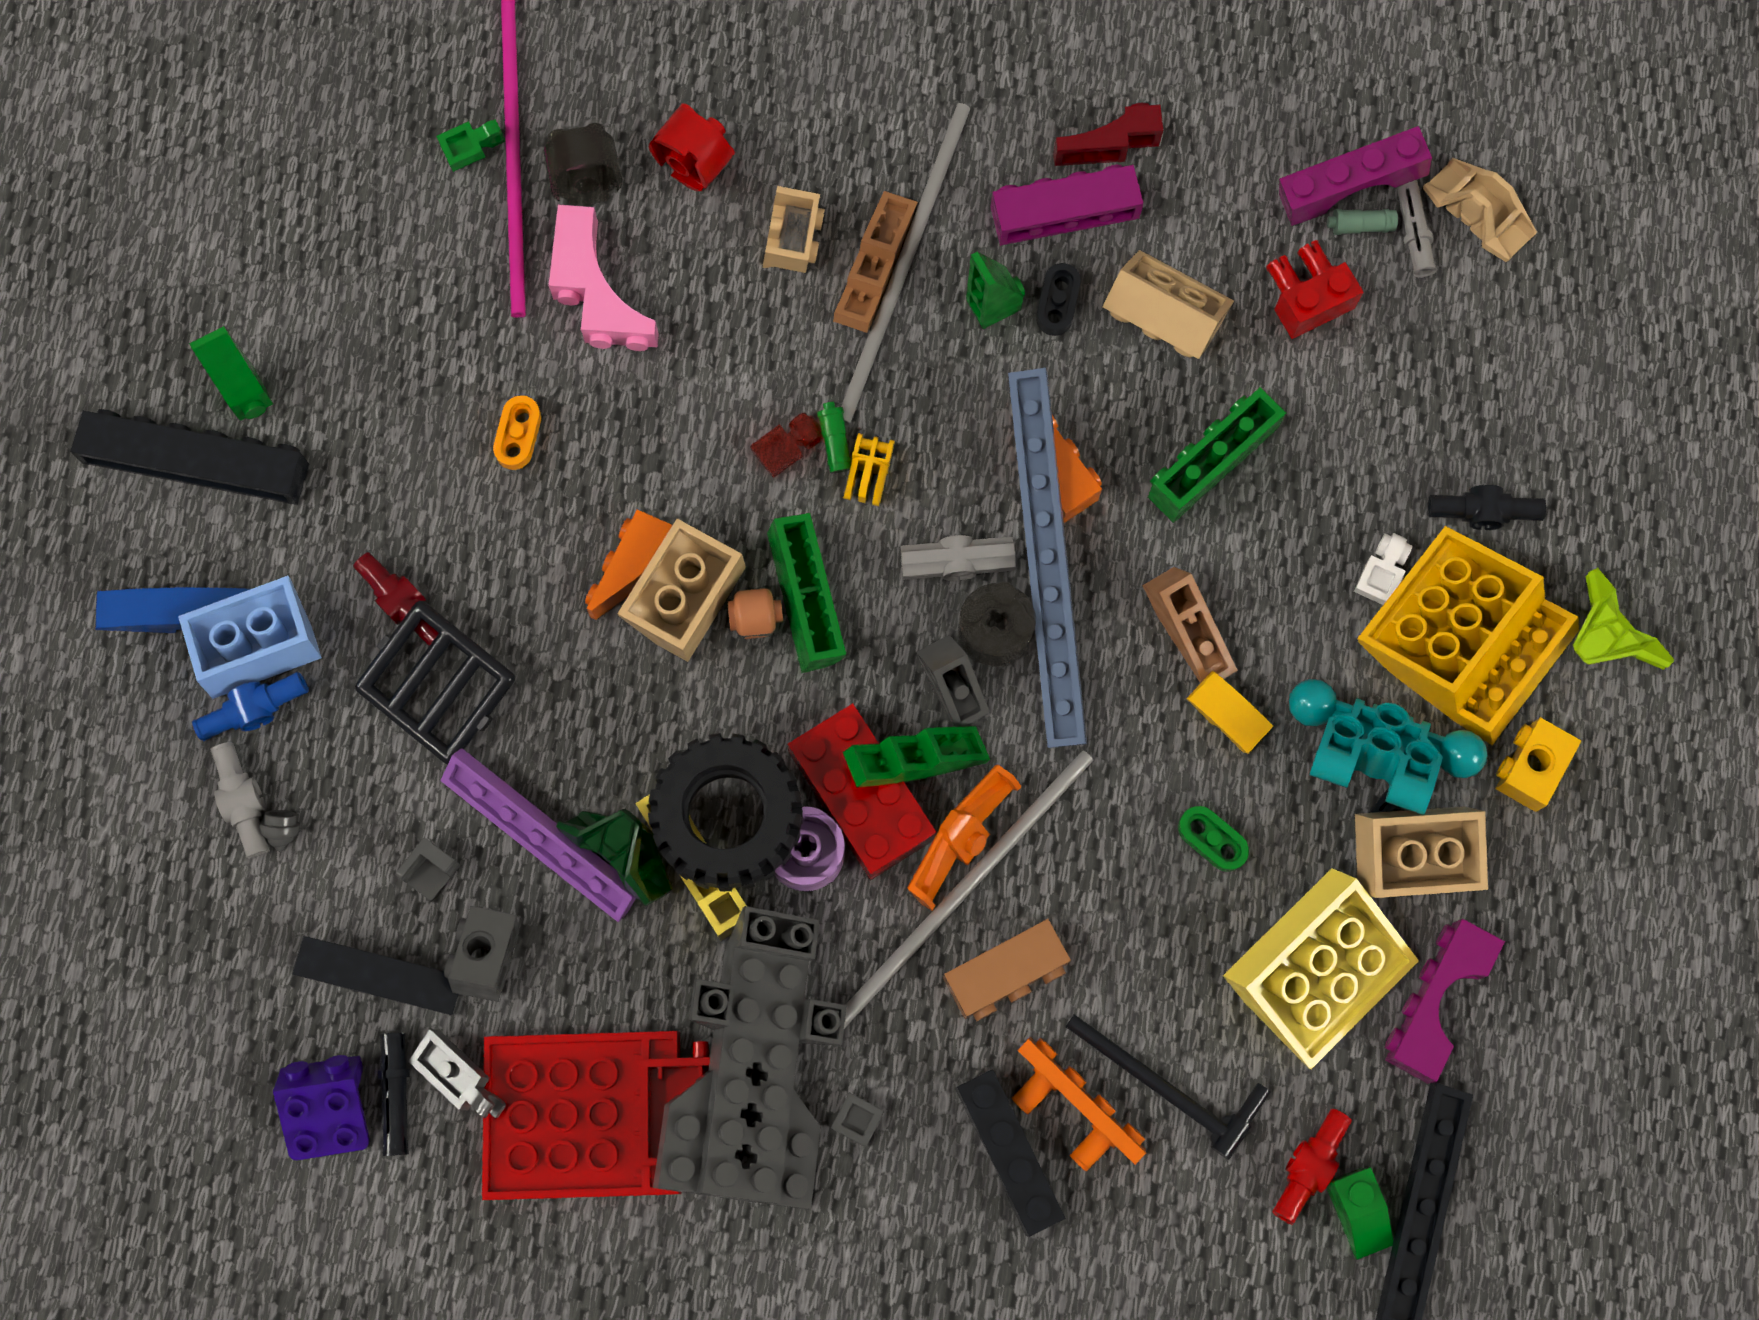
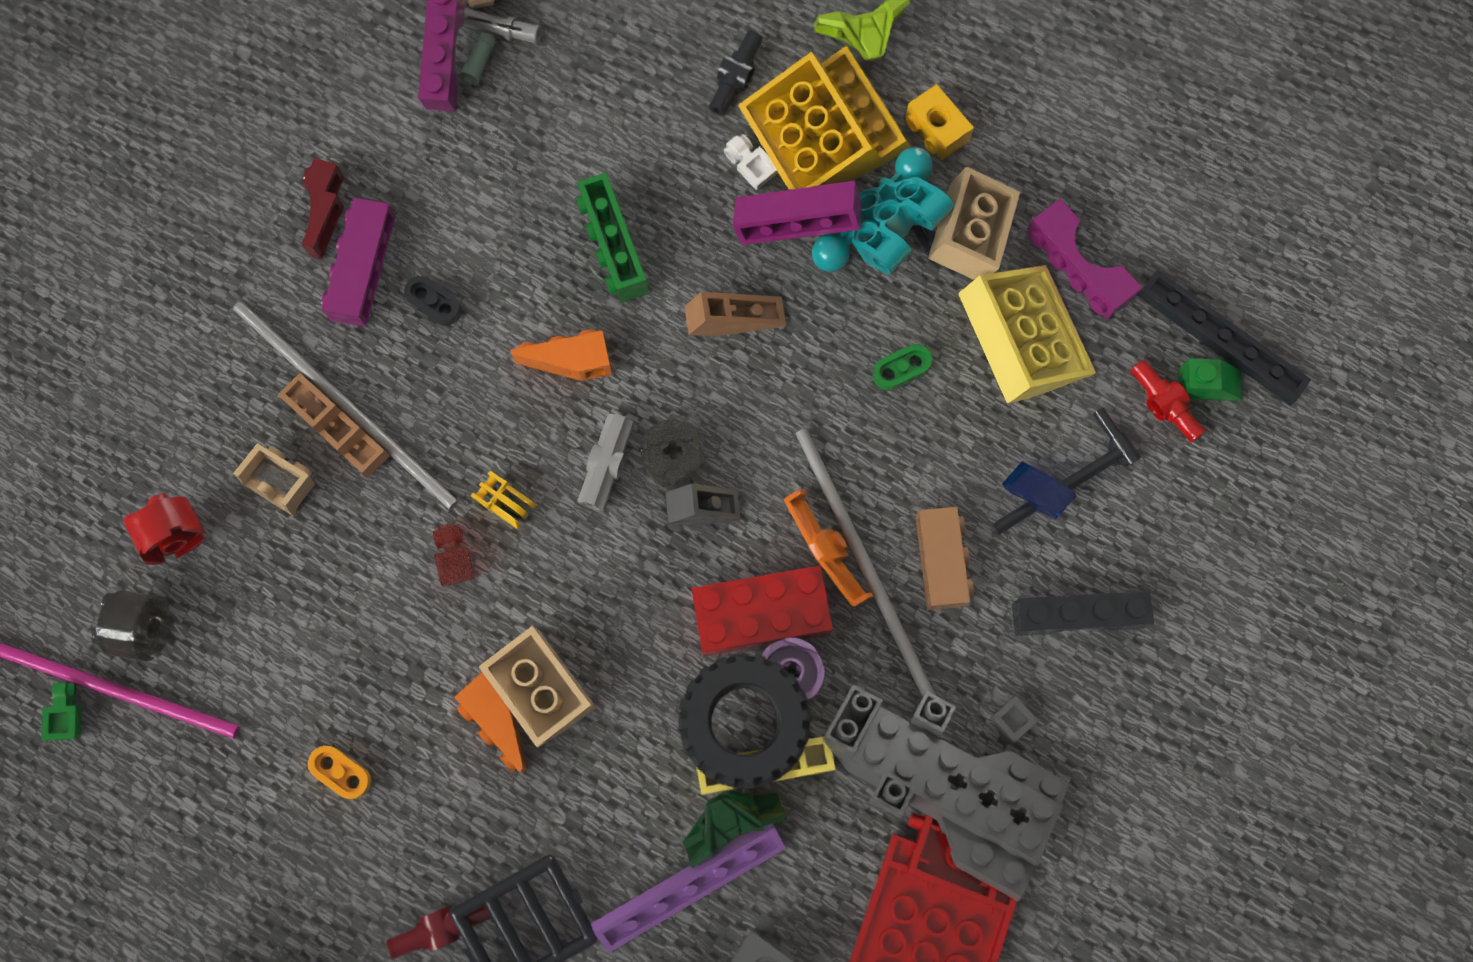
camera: 65 degrees left, 0 degrees up
(578, 278) = (230, 667): bright pink arch -> none
(754, 613) = (582, 637): nougat head -> none
(806, 592) = (581, 590): green brick -> none
(834, 436) = (463, 515): green piece -> none
(916, 756) = (754, 557): green slope -> none
(992, 290) = (404, 345): green slope -> none
(1047, 558) = (636, 391): sand blue plate -> none
(1106, 1130) = (1089, 535): orange plate -> none
(1133, 1049) = (1039, 489): none -> clear blue slope
(1167, 304) = (477, 223): tan slope -> none
(1230, 712) = (811, 314): yellow slope -> none
(1317, 300) = (524, 119): red brick -> none
(1339, 644) = (797, 213): none -> magenta brick

